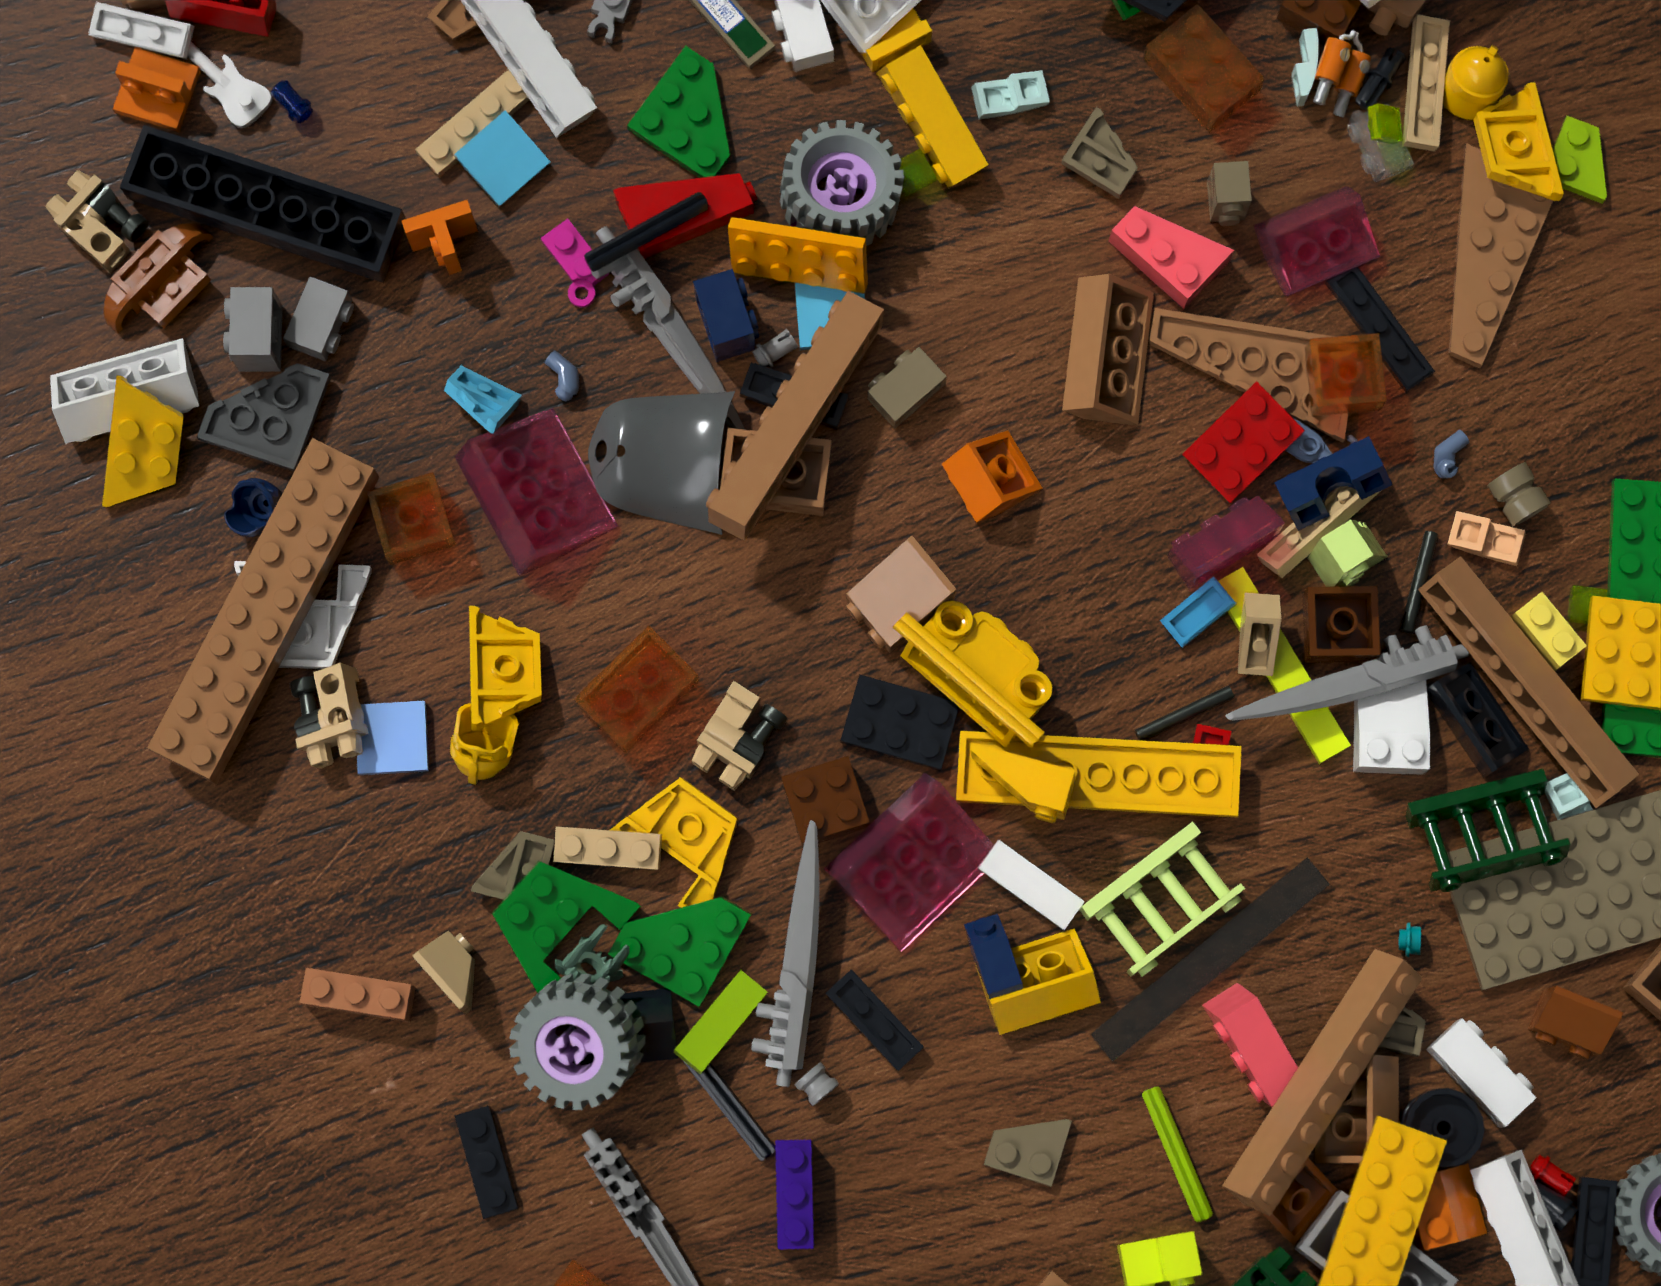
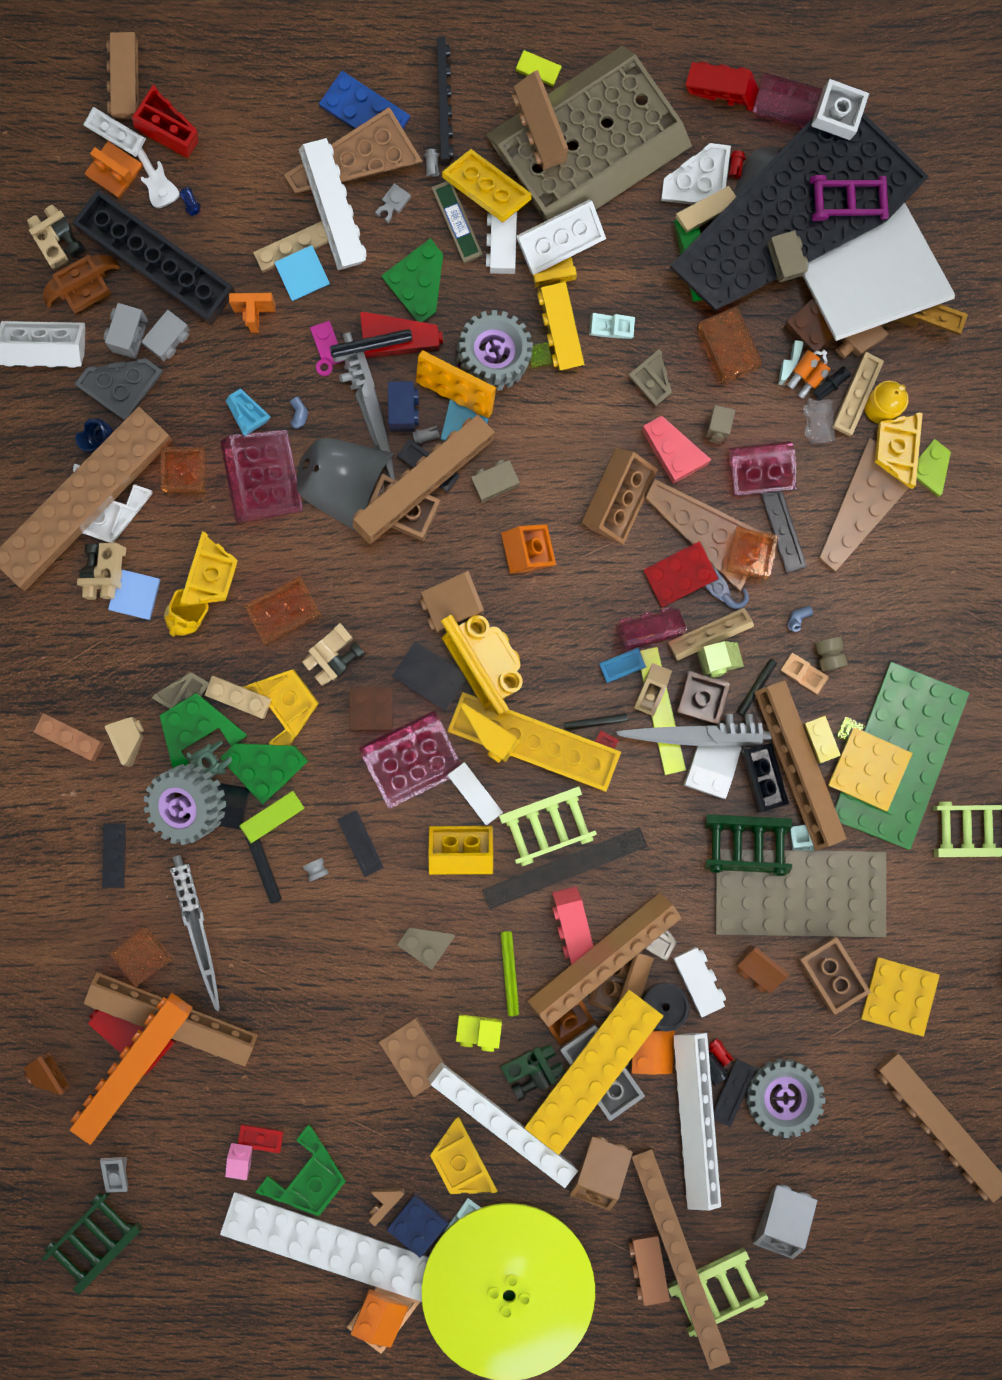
camera: 10 degrees right, 5 degrees up
(141, 445) = (40, 378): yellow wing -> none
(794, 1194) = (282, 929): dark purple arch -> none
(798, 972) = (324, 803): light grey piece -> none
(993, 956) = (439, 828): dark blue slope -> none
(1353, 466) = (708, 613): dark blue arch -> none
(1385, 123) = (824, 411): clear neon green plate -> none
(1410, 940) = (683, 893): teal plate -> none

